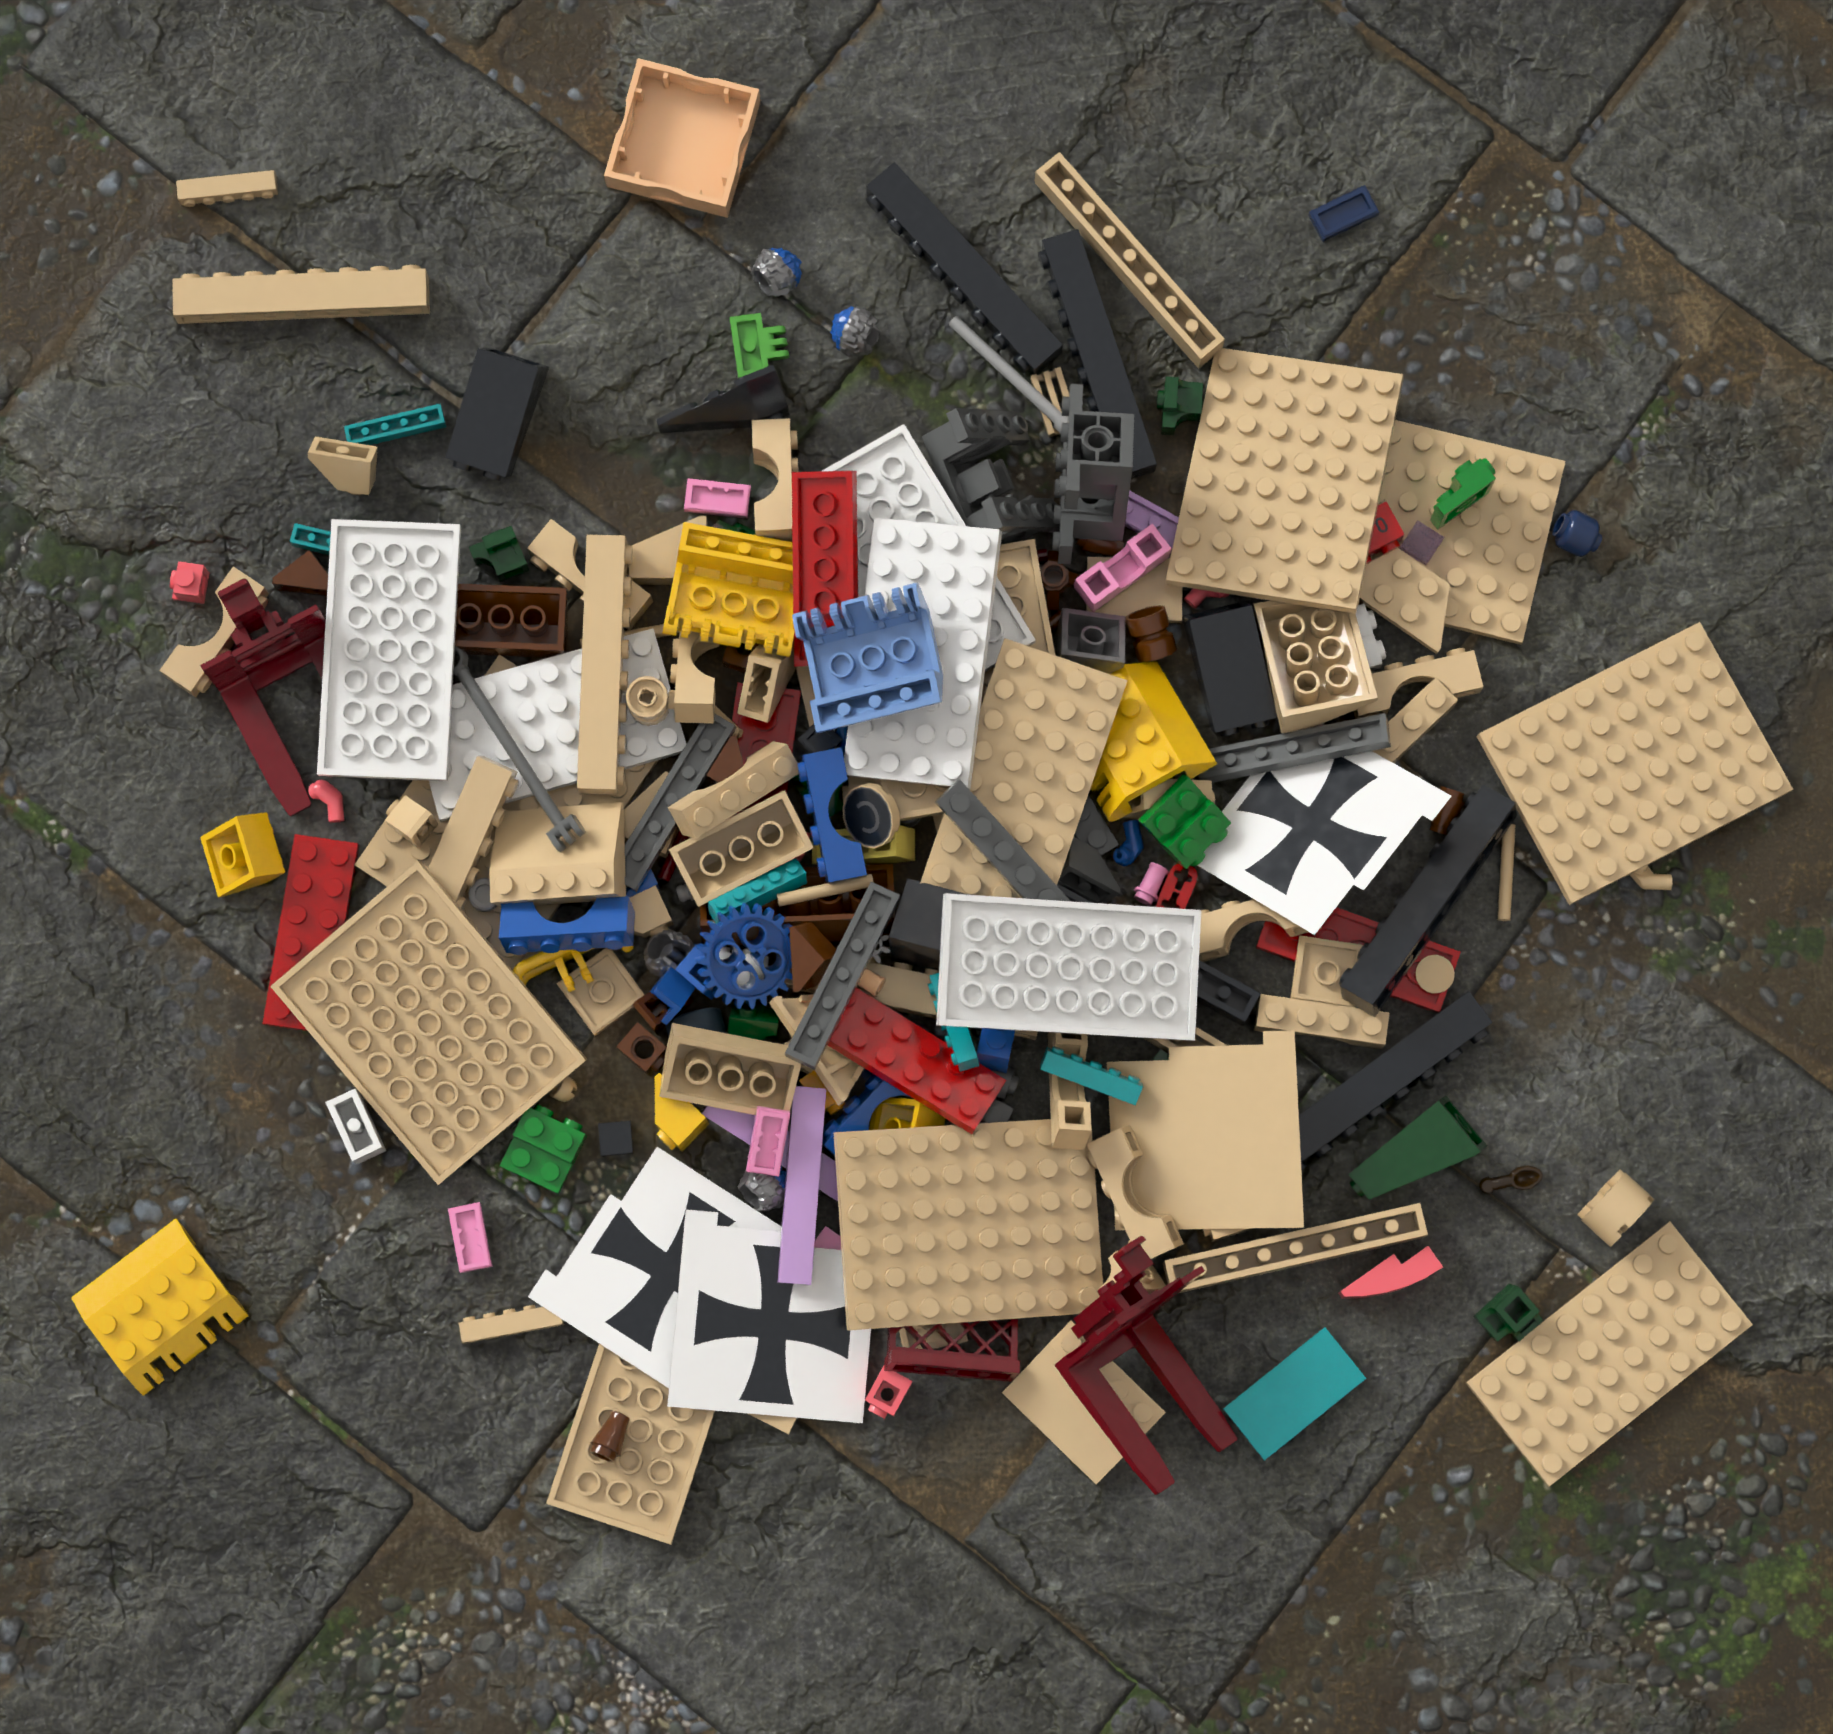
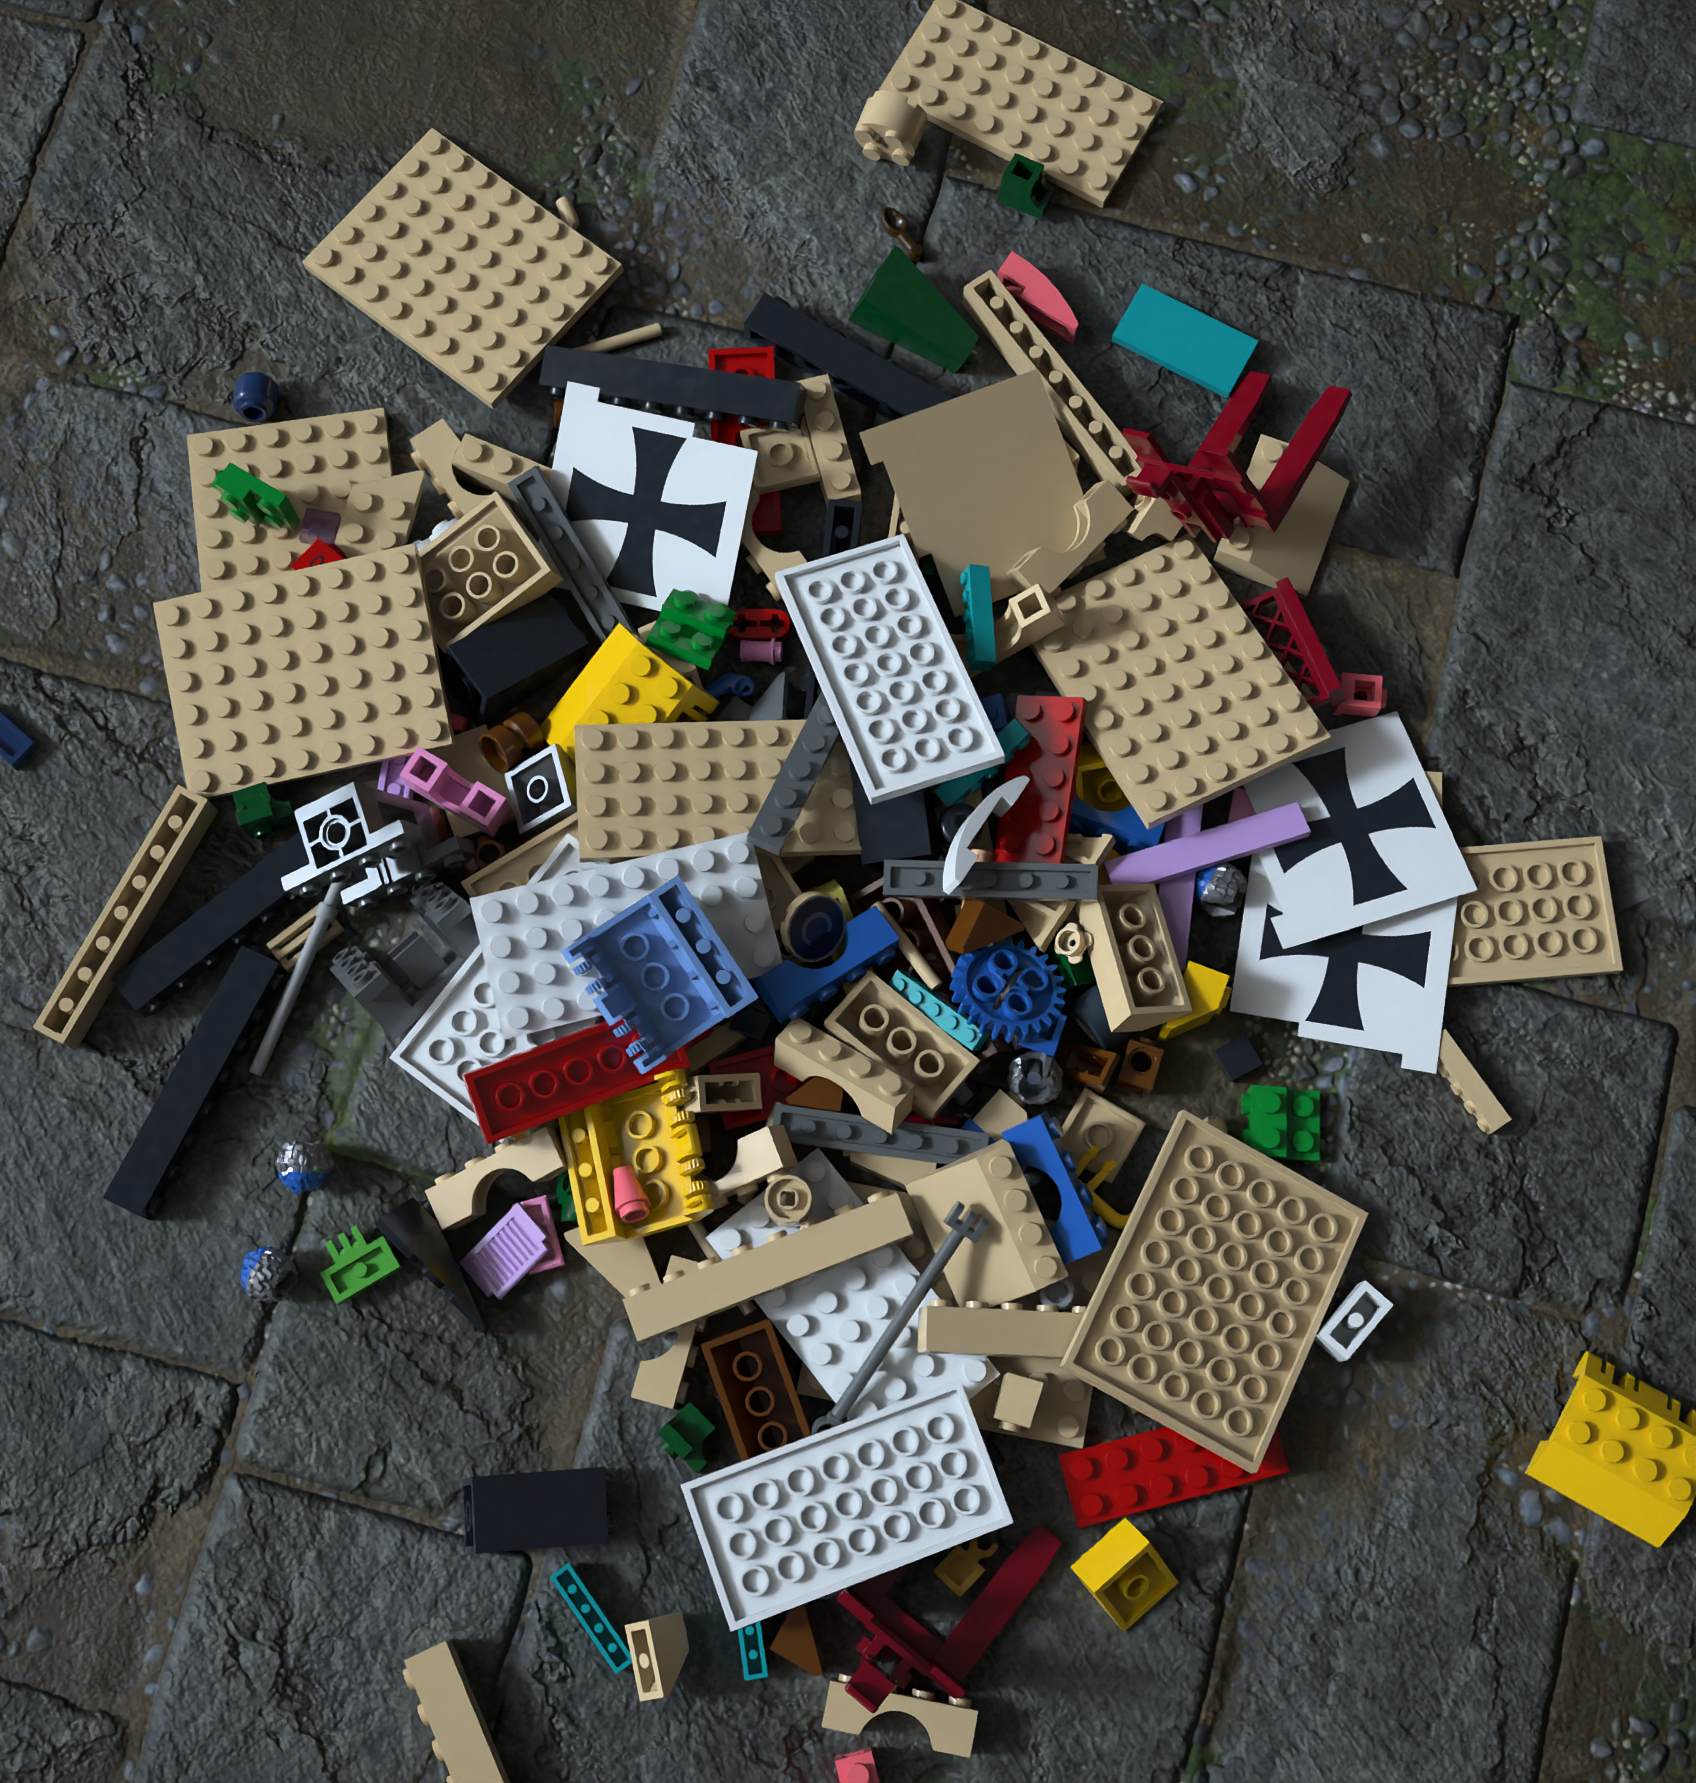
camera: 115 degrees left, 5 degrees down
(304, 729) = (961, 1567): none -> pearl gold plate
(331, 796) = (1022, 1505): coral arm -> none
(470, 1237) = (1403, 1159): bright pink plate -> none
(610, 1438) = (1535, 930): reddish brown cone -> none
(673, 991) = (1075, 1051): blue panel -> none
(682, 138) = (153, 1440): light nougat tile -> none
(706, 574) = (629, 1196): none -> coral cone
(712, 466) = (506, 1252): none -> lavender window
(767, 1021) = (1065, 938): none -> tan plate
(768, 1141) = (1182, 892): bright pink plate -> none
(863, 949) = (959, 857): none -> white slope
(906, 977) = (951, 821): none -> black head
(1435, 974) = (739, 360): tan sticker -> none

